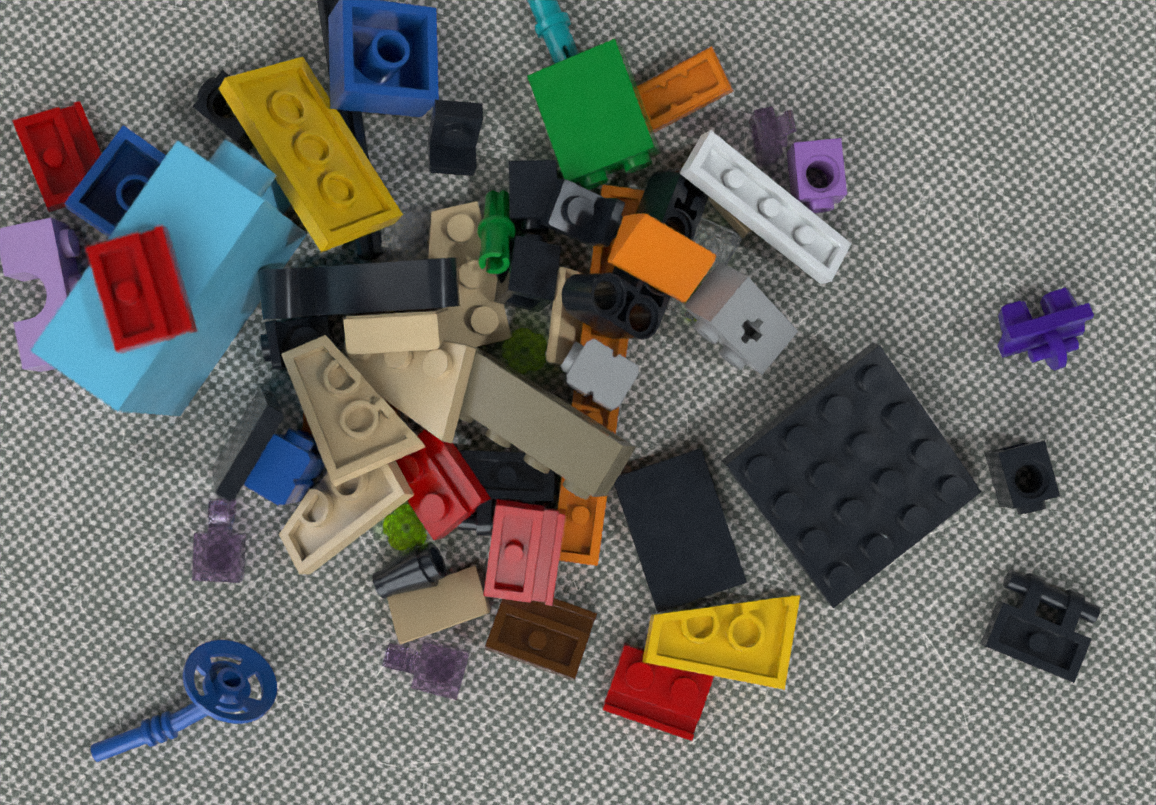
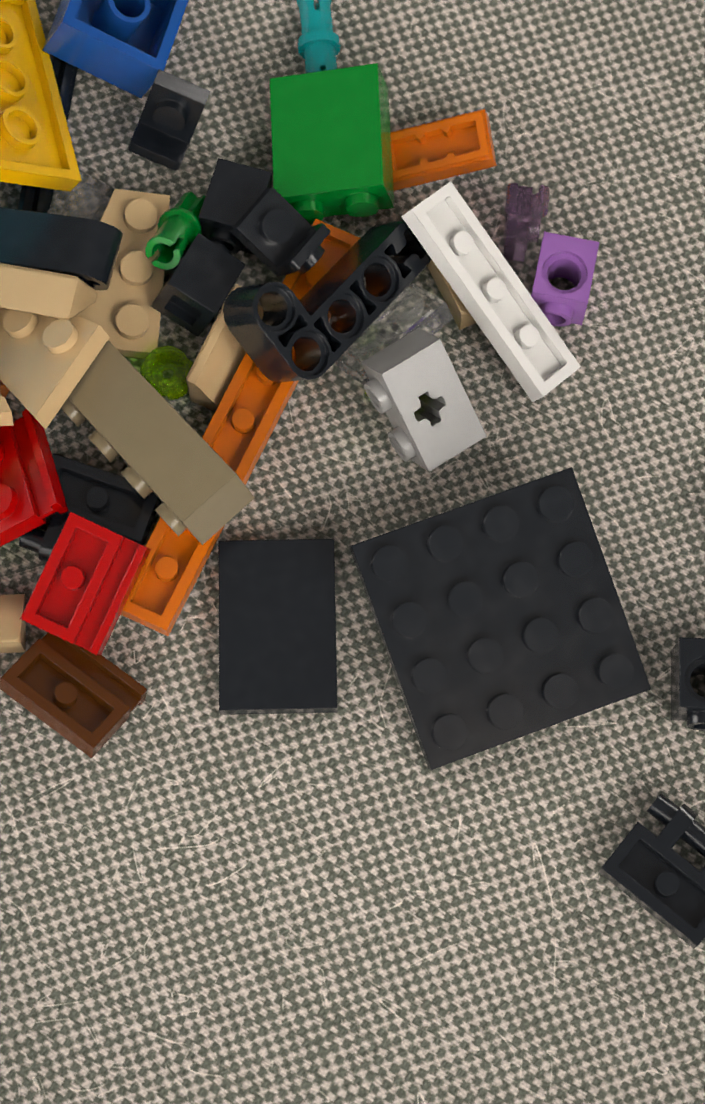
camera: 10 degrees right, 15 degrees down
(598, 373) = (239, 400): light grey brick -> none
(656, 694) = (189, 806): red plate -> none
(660, 256) = (349, 290): orange slope -> none
(727, 641) = (290, 768): yellow wing -> none

